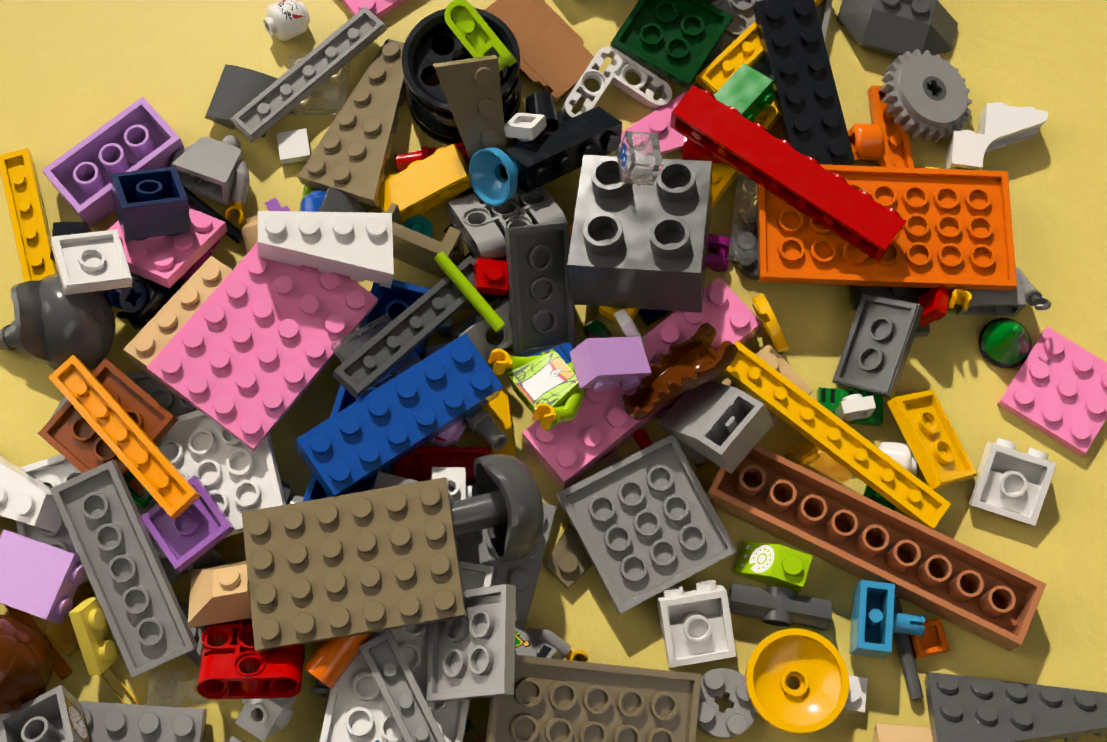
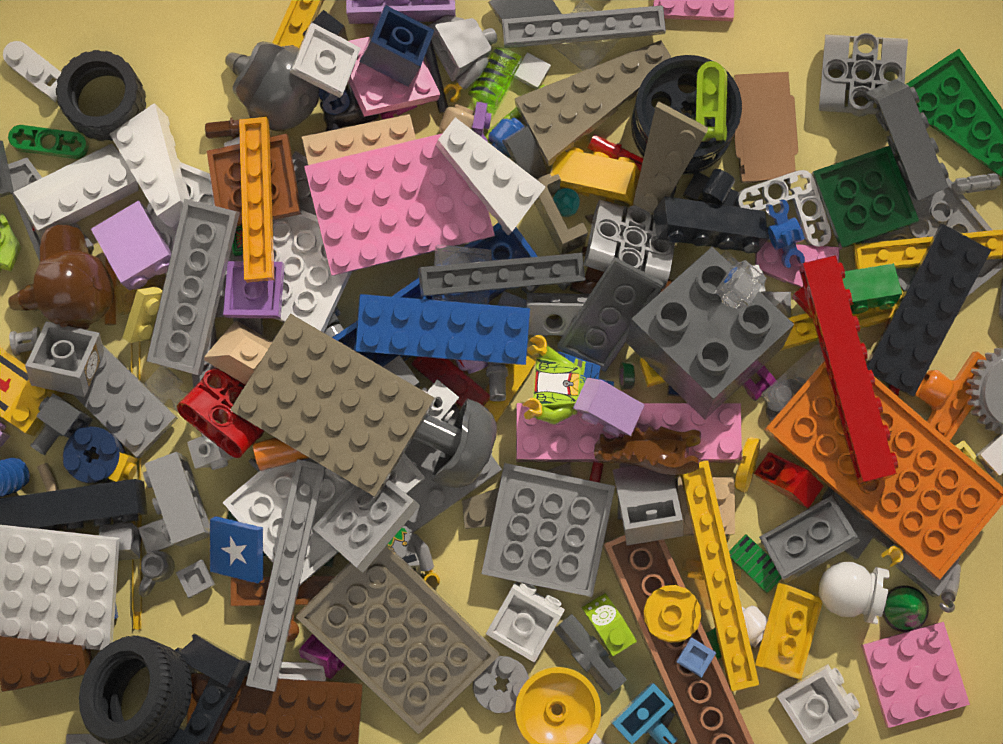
camera: 40 degrees right, 10 degrees up
(41, 406) = (222, 129): none -> reddish brown axle
(264, 172) = (496, 77): none -> clear neon green brick
(469, 291) = (558, 280): lime bar -> none
(487, 178) = (642, 210): dark azure piece -> none
(491, 276) = (582, 279): red plate -> none
(525, 126) = (694, 190): white plate -> none
(627, 324) = (645, 390): white tile -> none
(632, 107) = (785, 233): none -> blue pin
(814, 311) = (789, 479): none -> red slope
(822, 503) = (672, 613): none -> yellow tile
(855, 407) = (755, 567): white plate -> none
(877, 524) = (696, 657): none -> medium blue tile
(935, 305) = (872, 543): red plate -> none
(953, 358) = (852, 591): none -> white tile

